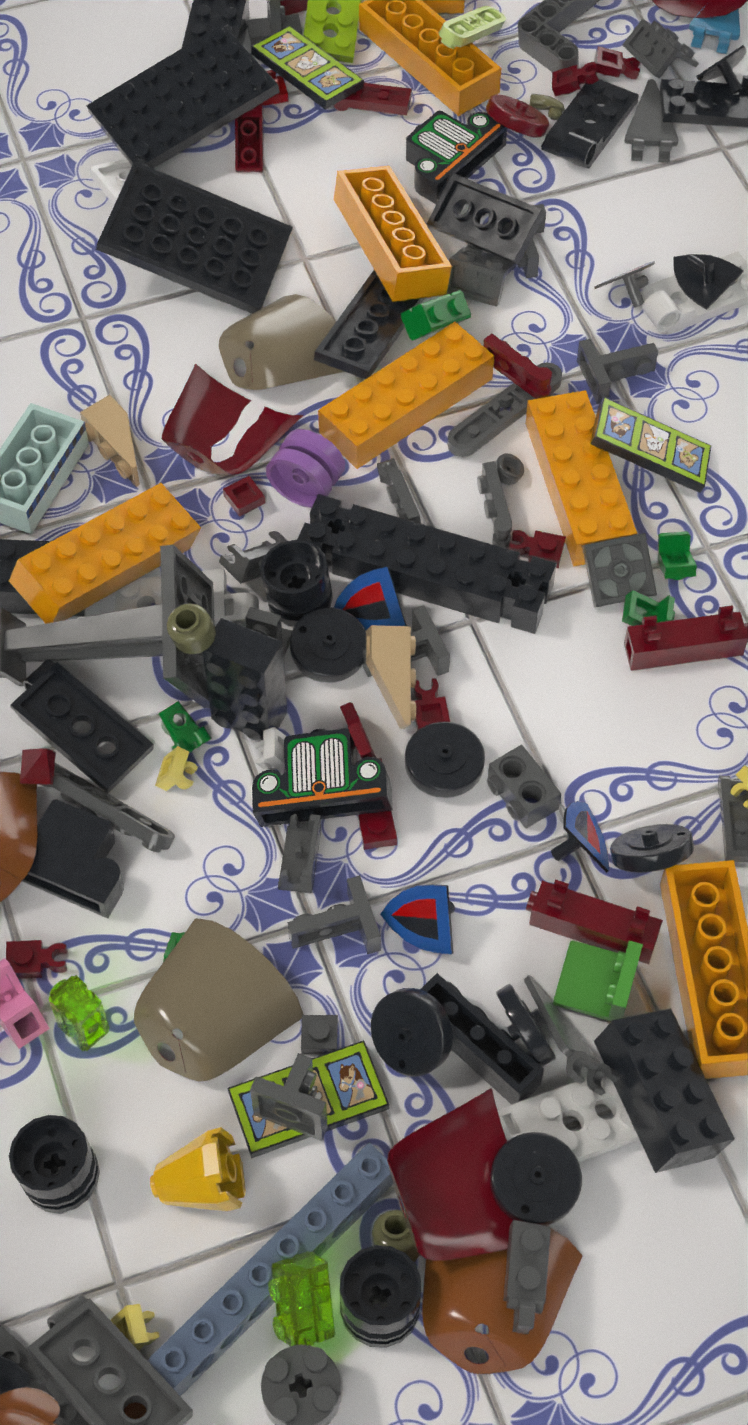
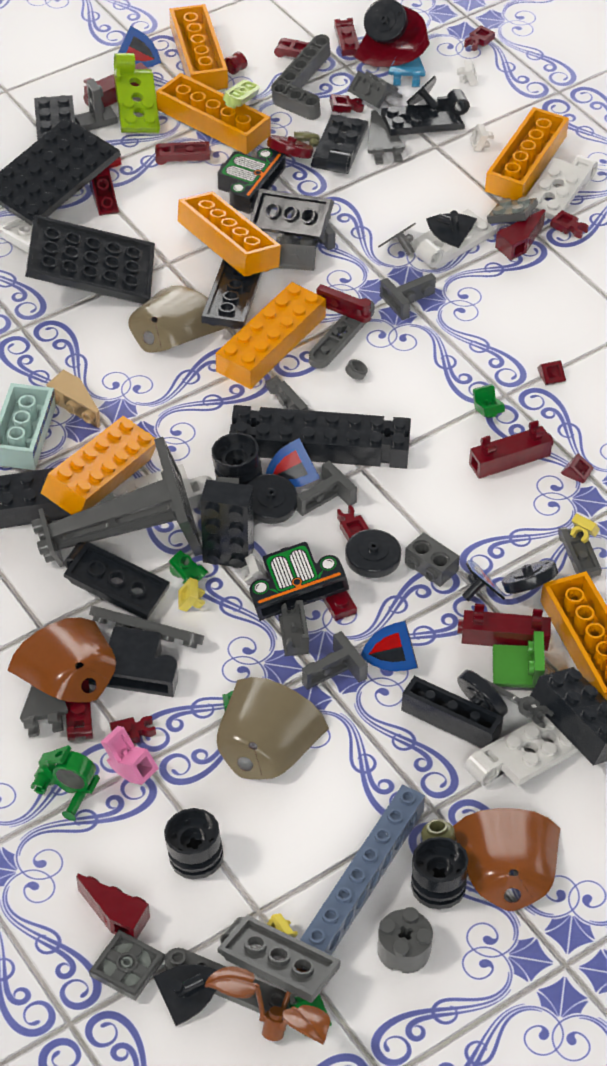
camera: 15 degrees left, 10 degrees down
(37, 766) = (96, 607): dark red slope -> none
(78, 1012) = (178, 750): clear neon green brick -> none
(191, 628) = (190, 487): olive head -> none
(202, 1174) = (293, 830): yellow cone -> none
(206, 416) = (135, 373): dark red piece -> none
(244, 496) = (178, 418): dark red plate -> none
(246, 564) = (198, 457): dark grey hinge -> none
(293, 1103) = (345, 771): dark grey bracket -> none
(302, 1300) = (389, 884): clear neon green brick -> none
(305, 467) = (218, 390): medium lavender wheel -> none
(307, 67) = (132, 138): tile -> none
(319, 1034) = (343, 735): dark grey plate -> none
(344, 1081) = (348, 775): tile -> none
(357, 730) = (314, 544): dark red tile -> none
(389, 662) = (318, 497): tan slope -> none
(411, 1032) = (407, 715): black wheel -> none
(435, 315) = (276, 280): green brick -> none
(445, 1182) = (471, 793): dark red piece -> none
(495, 504) = (355, 390): dark grey plate -> none
(526, 1272) = (531, 834): dark grey hinge -> none
(535, 1178) = (518, 782): black wheel -> none
(542, 545) = (392, 410): dark red plate -> none
(570, 78) = (319, 117): dark red plate -> none
(577, 473) = (408, 365): light orange brick -> none
(617, 568) = (453, 416): dark grey piece -> none
(640, 606) = (472, 436): green bracket -> none
(651, 444) = (450, 335): tile -> none

